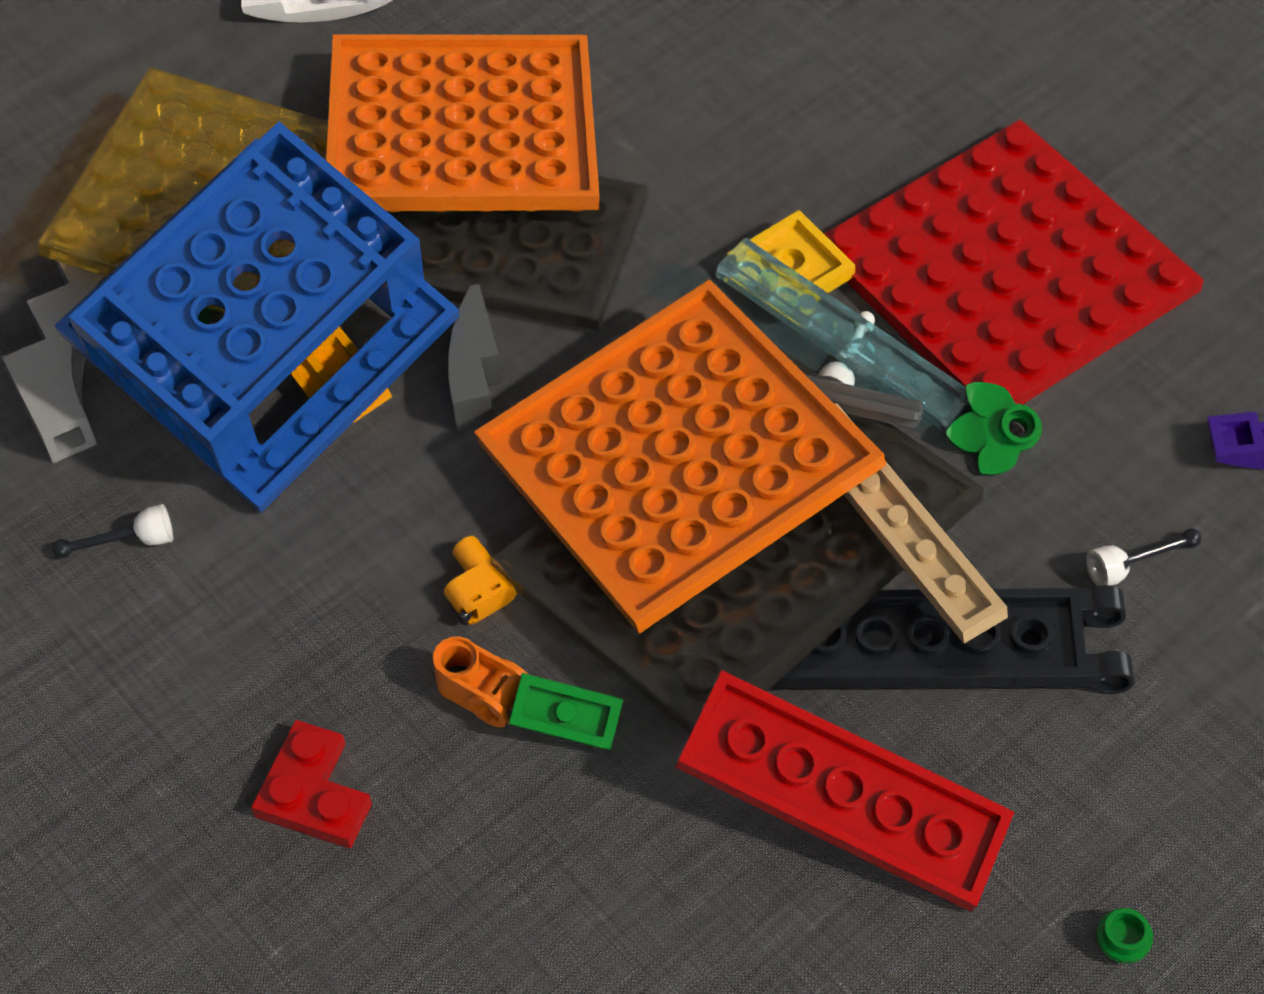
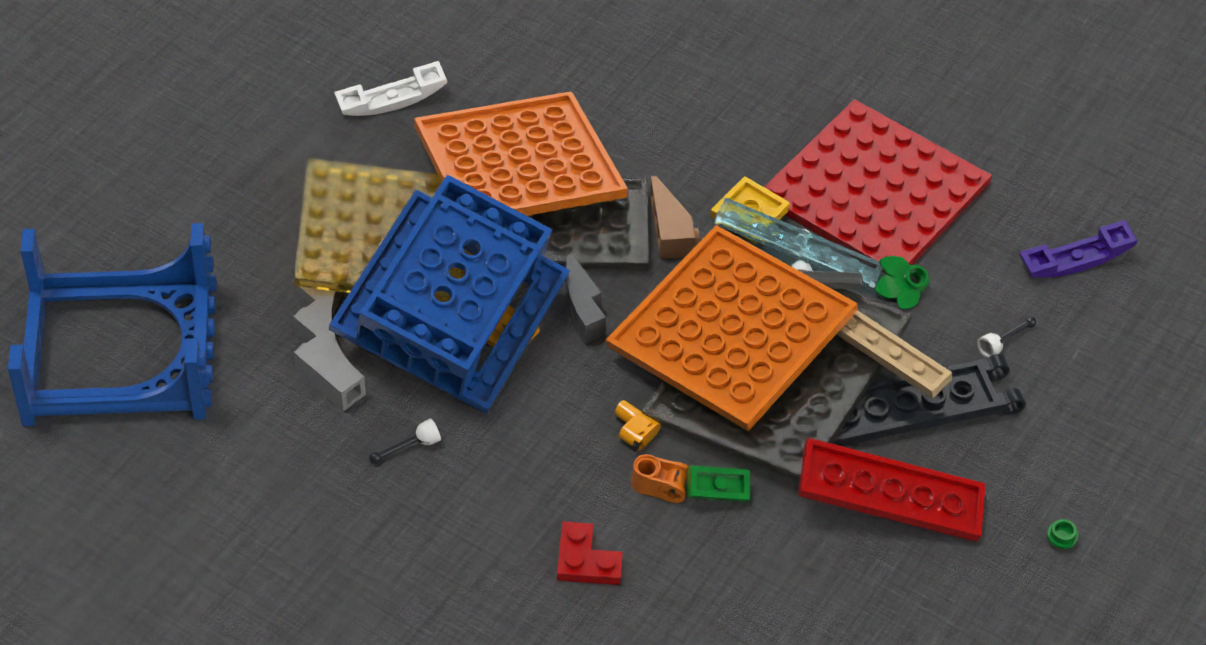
camera: 20 degrees left, 5 degrees down
(658, 262) = (672, 223): none -> medium nougat slope

